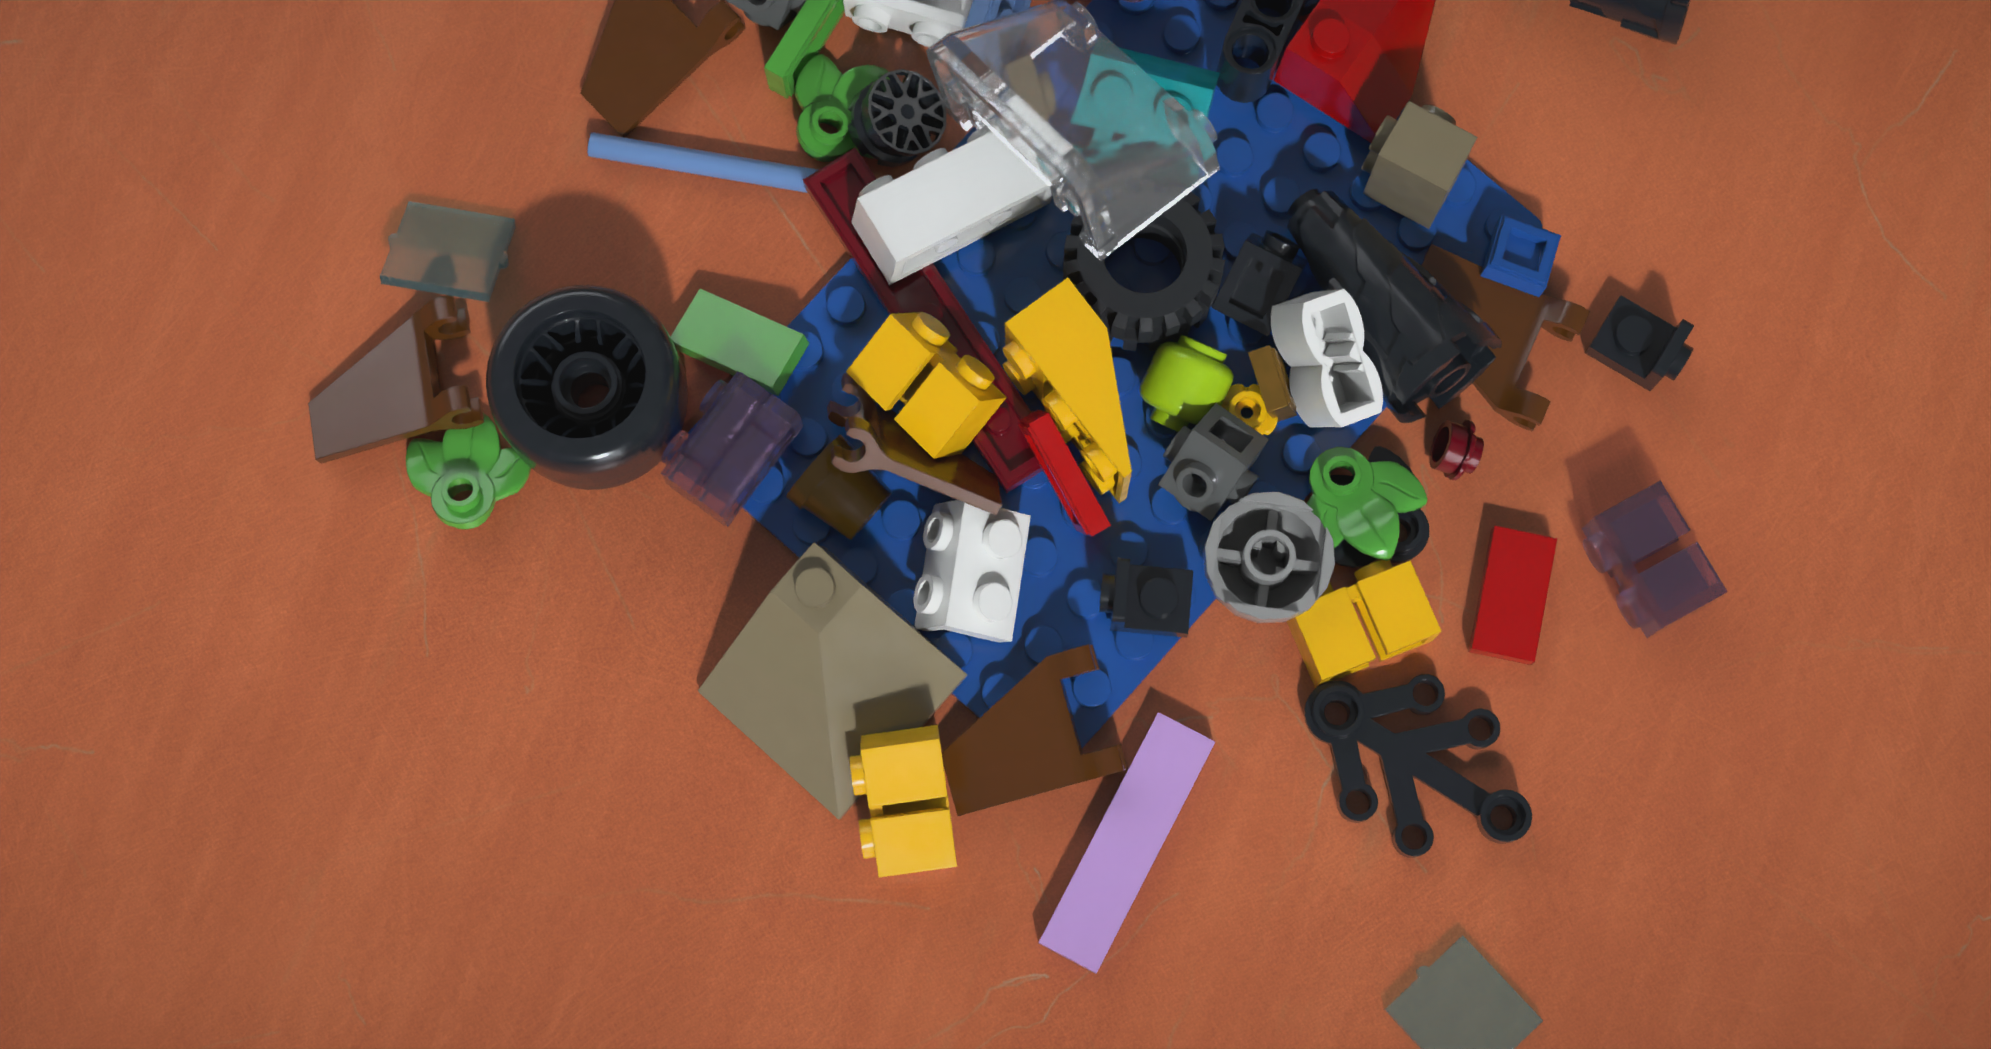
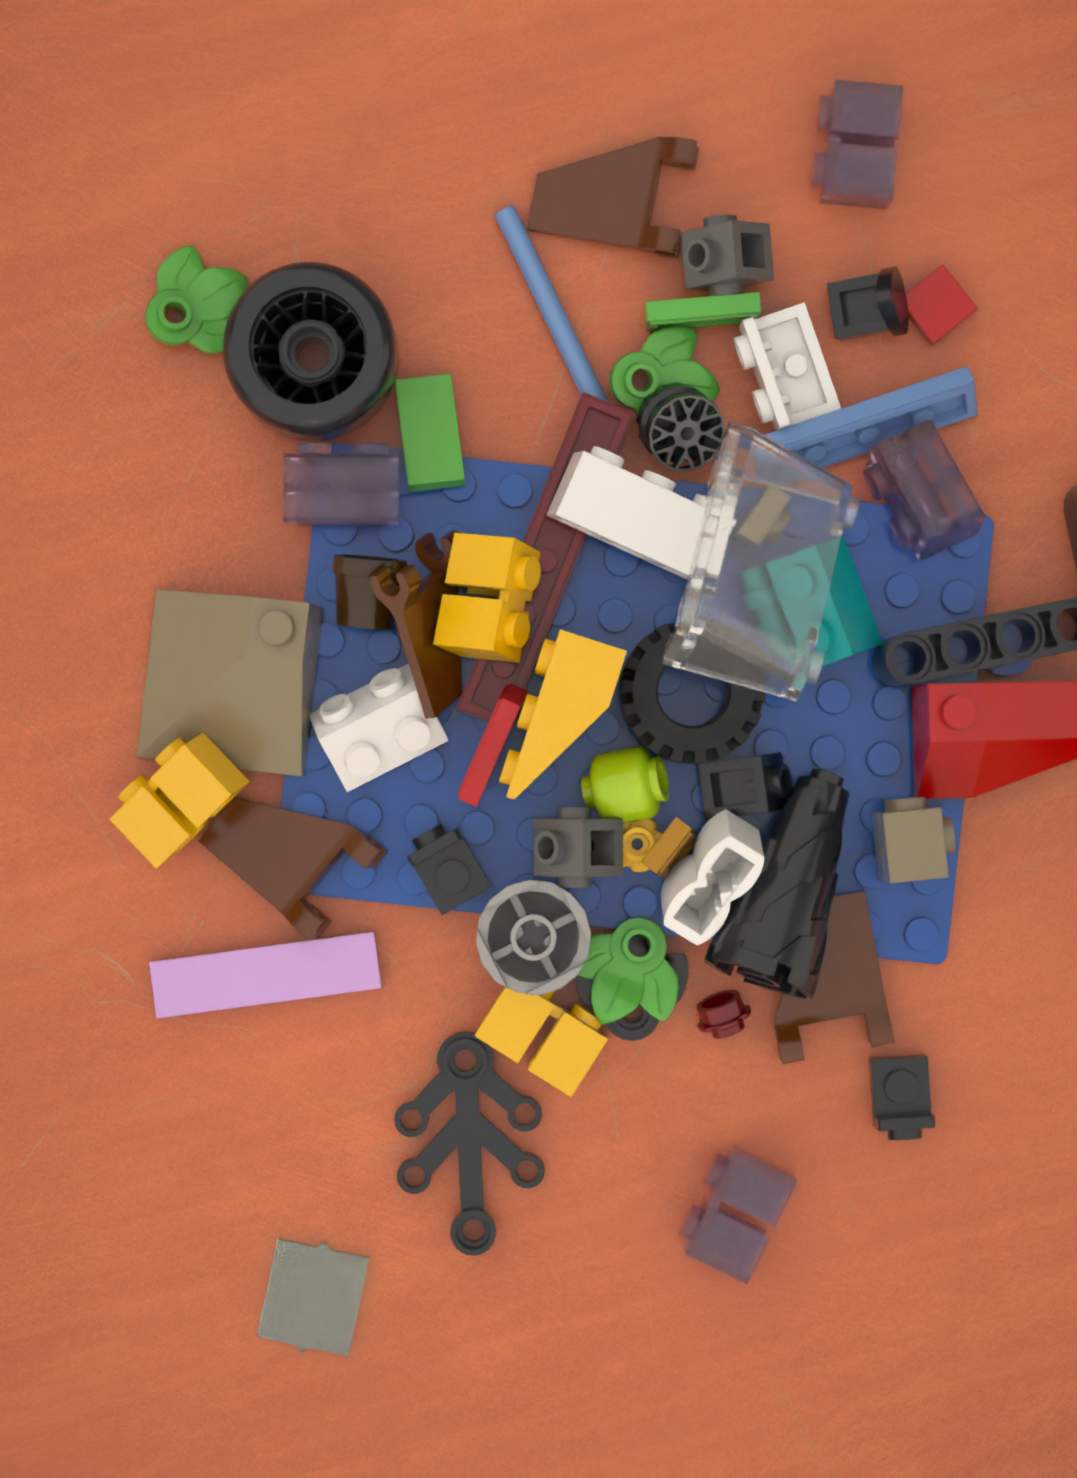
camera: 50 degrees right, 10 degrees up
(395, 389) = (215, 206): reddish brown flag -> none
(448, 251) = (345, 168): clear light blue piece -> none
(1513, 595) = (643, 1128): red tile -> none
(1520, 255) = (902, 963): blue tile -> none

